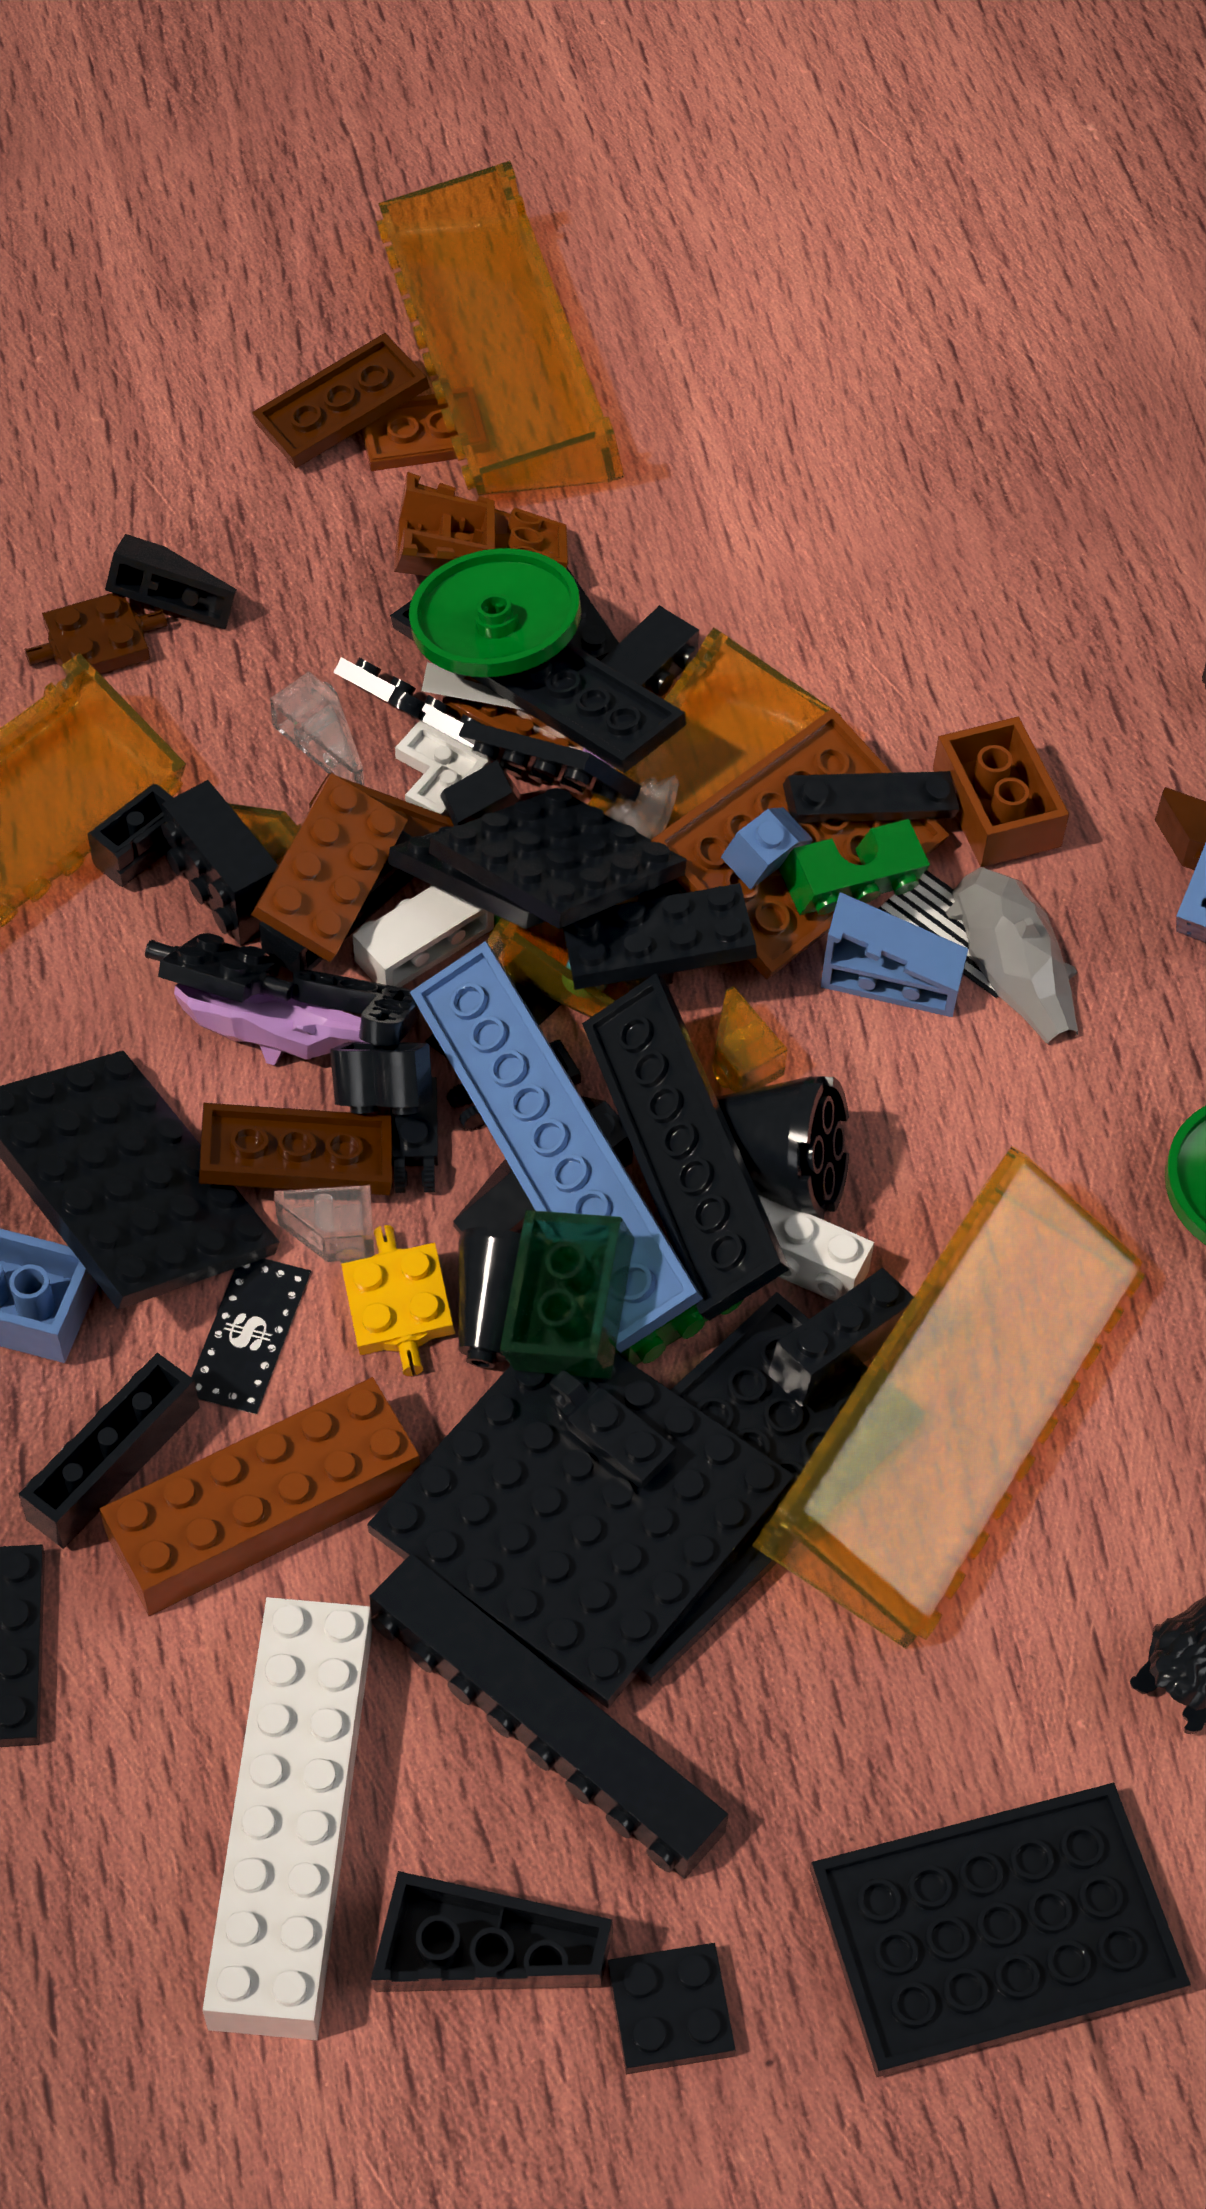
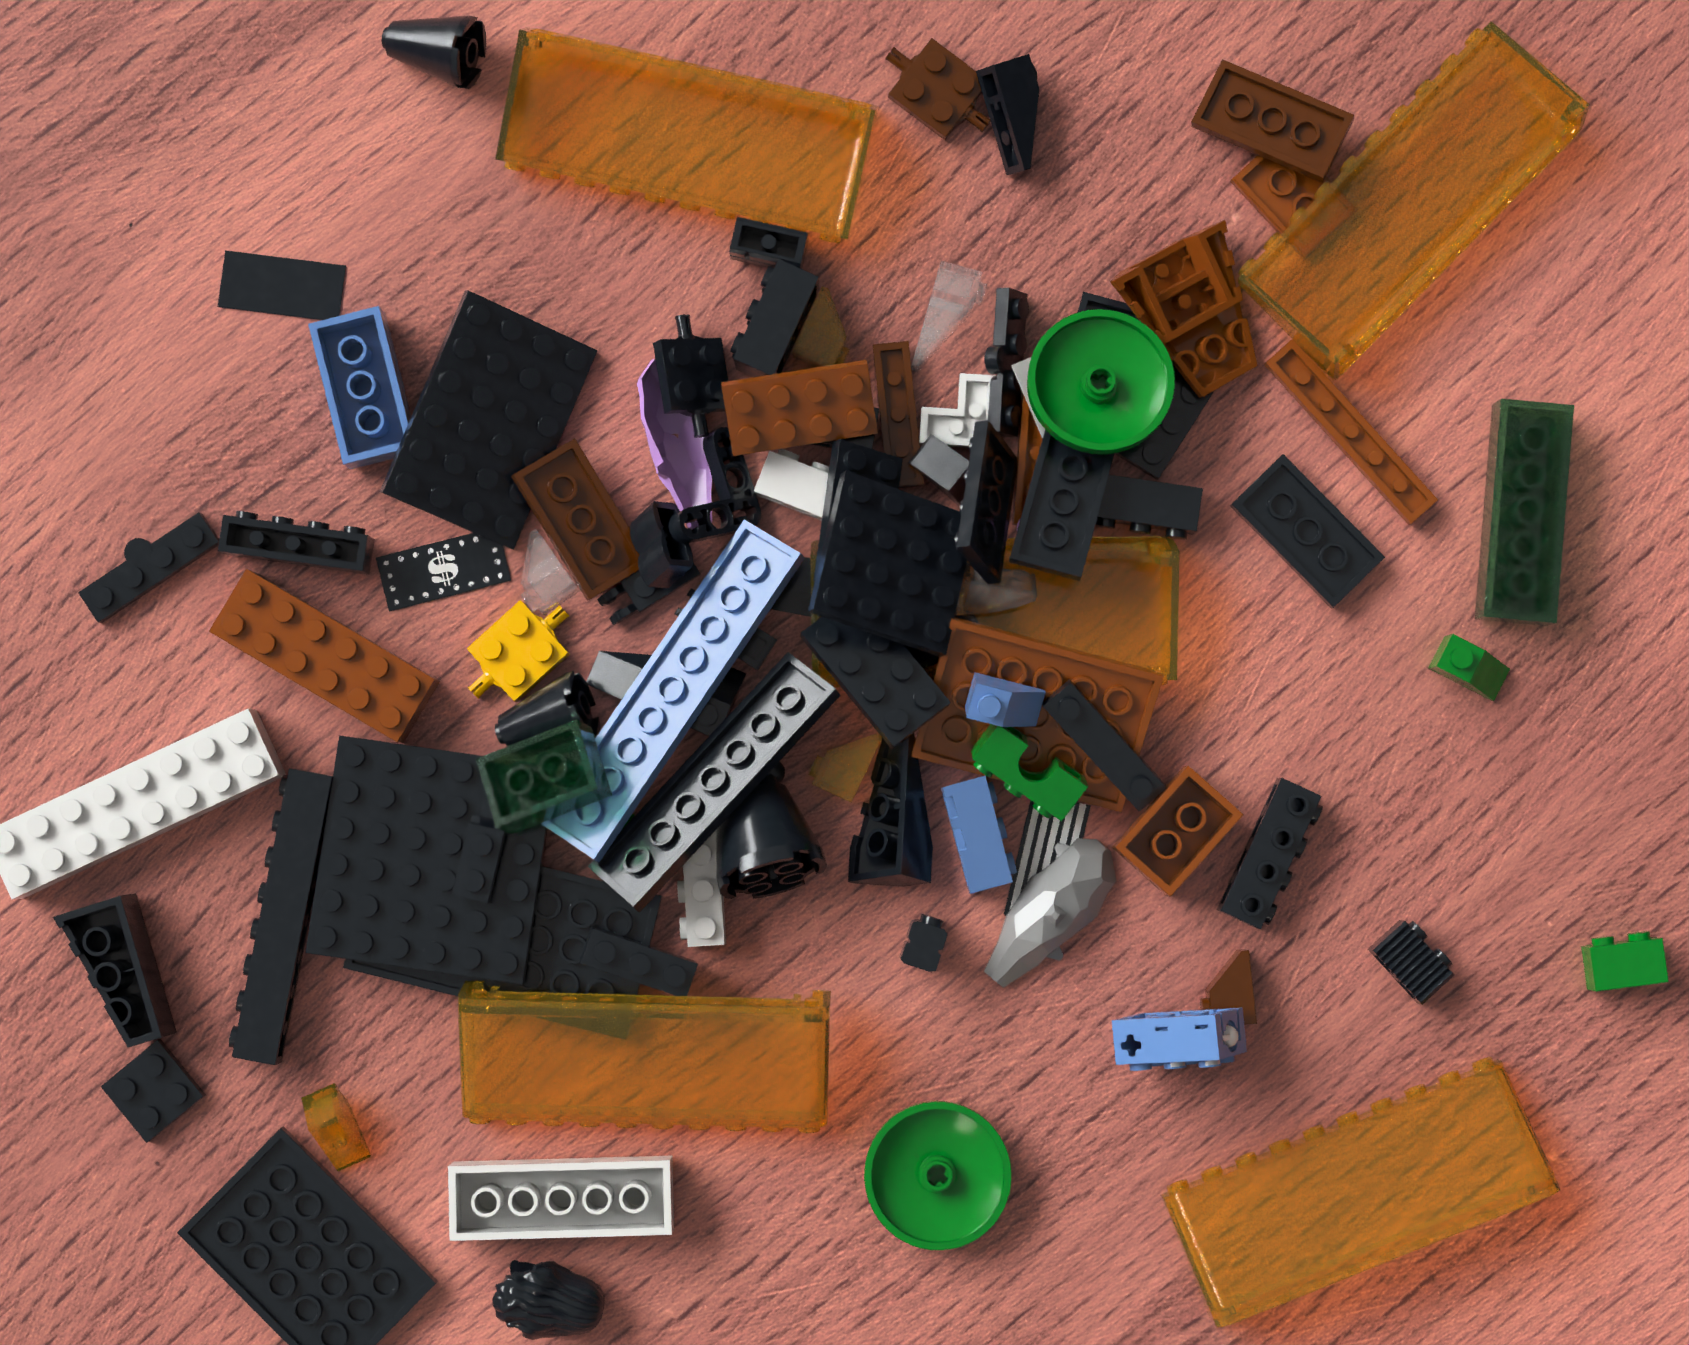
camera: 65 degrees right, 30 degrees up
(683, 486) = (1350, 432): none -> dark orange plate
(758, 561) = (1307, 531): none -> black plate
(834, 1034) = (895, 832): none -> black wedge
(846, 1796) = (335, 1127): none -> clear yellow slope
(855, 393) = (1524, 512): none -> clear green brick
(973, 505) = (1469, 666): none -> green slope
(988, 1059) = (924, 942): none -> black brick
(1071, 737) = (1269, 853): none -> black brick
(1079, 1578) = (561, 1198): none -> white brick

